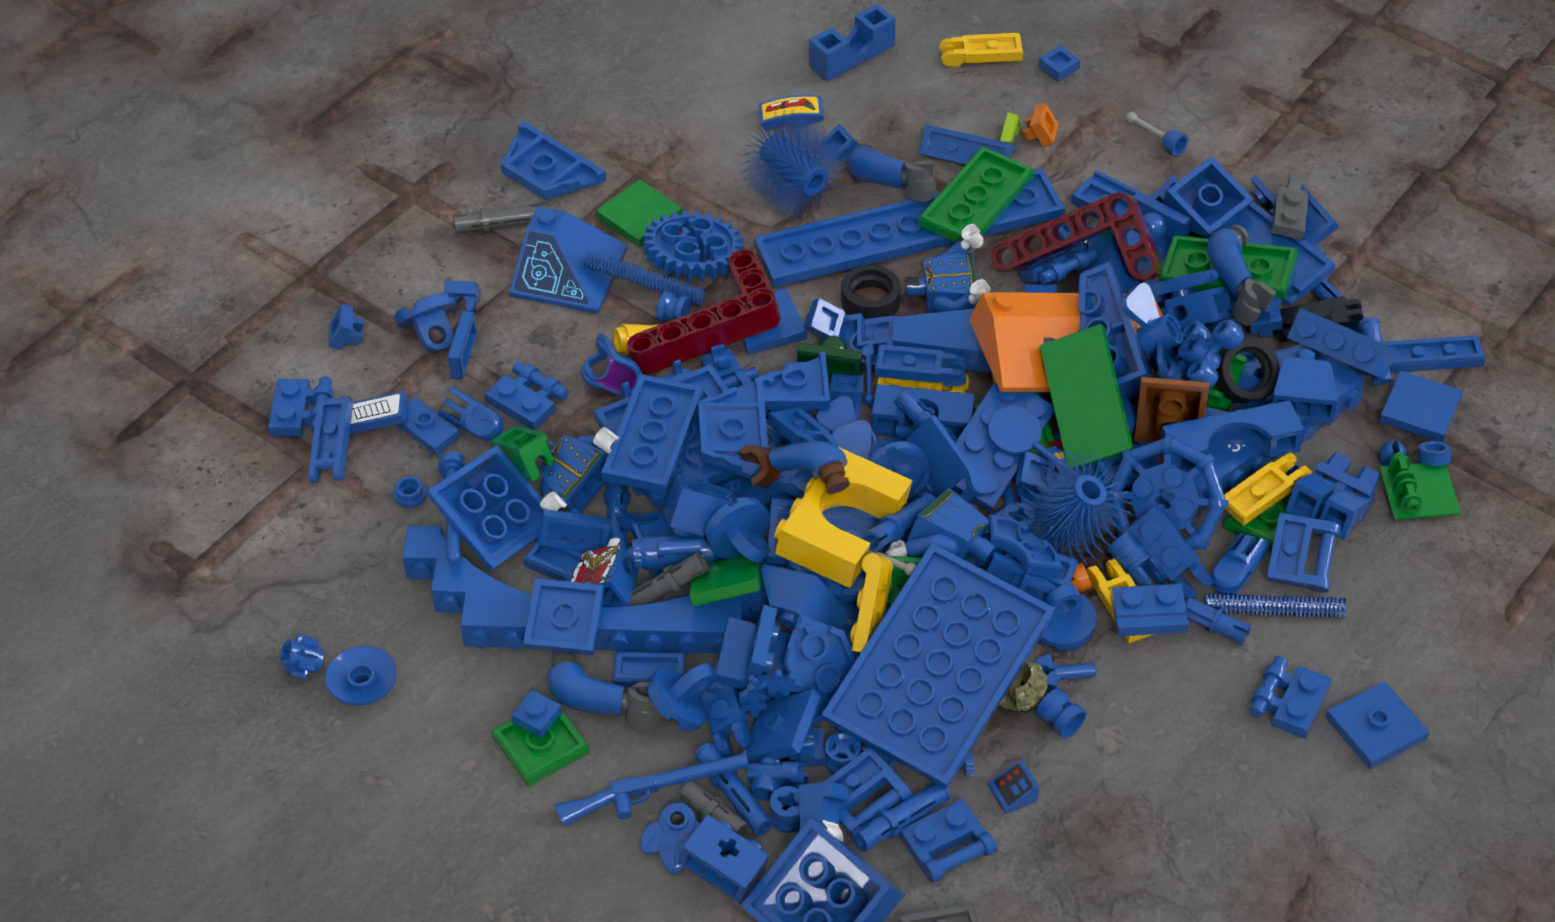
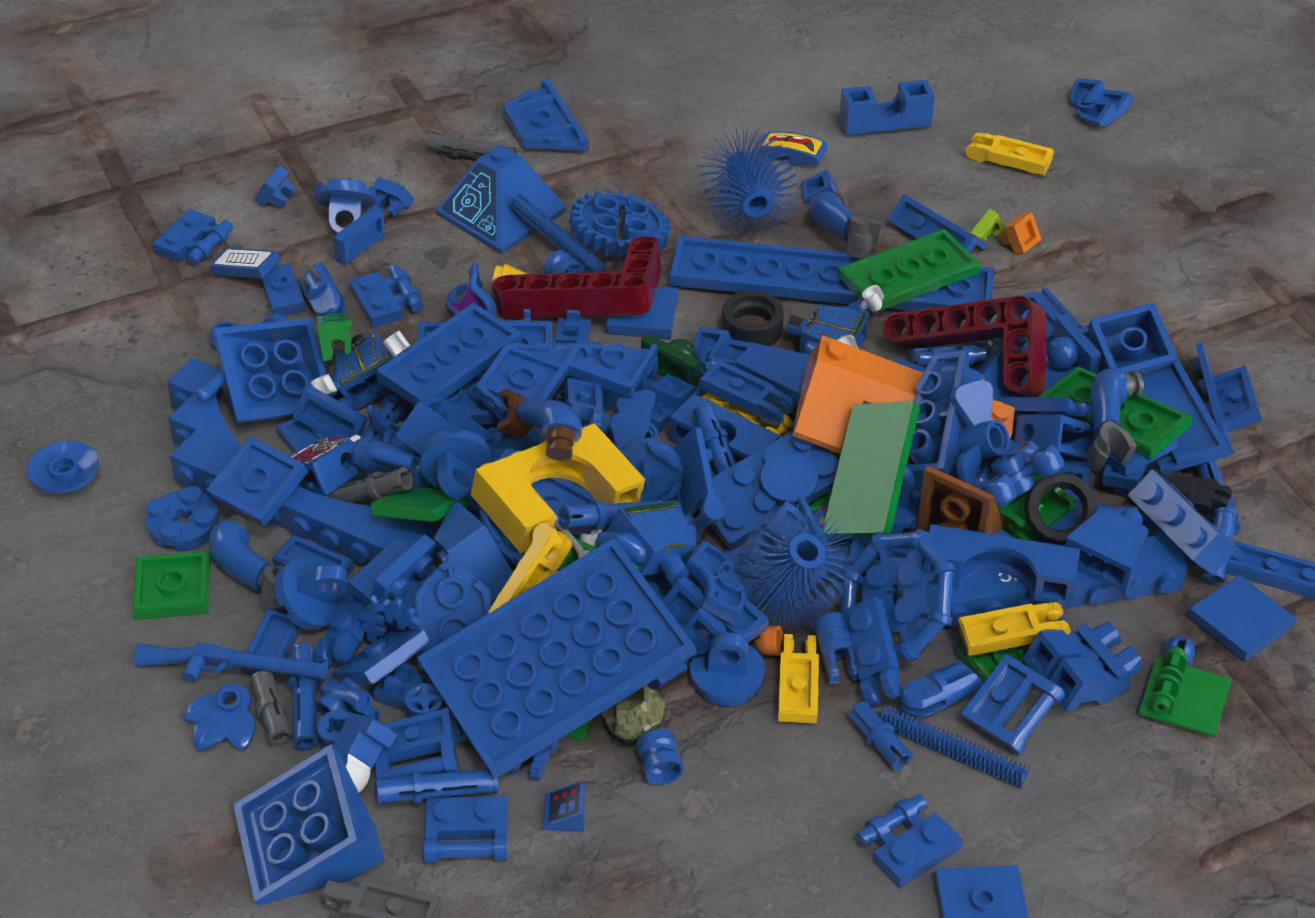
camera: 25 degrees right, 5 degrees down
(301, 656) = (27, 431): blue gear -> none
(330, 438) = (191, 269): blue hinge -> none
(503, 662) = (189, 503): none -> blue plate
(536, 713) = (180, 557): blue plate -> none
(634, 211) = (594, 176): green tile -> none
(666, 749) = (273, 637): none -> blue tile
(705, 857) = (227, 736): blue brick -> none
(824, 319) = (688, 322): tile -> none
(1056, 673) = (686, 719): blue bar -> none
(1059, 63) = (1076, 187): blue plate -> none
(1149, 610) = (813, 695): blue plate -> none
(1173, 140) = (1143, 289): blue hinge -> none
(1290, 209) = (1213, 382): dark grey hinge -> none
(1434, 453) = (1224, 666): blue tile -> none

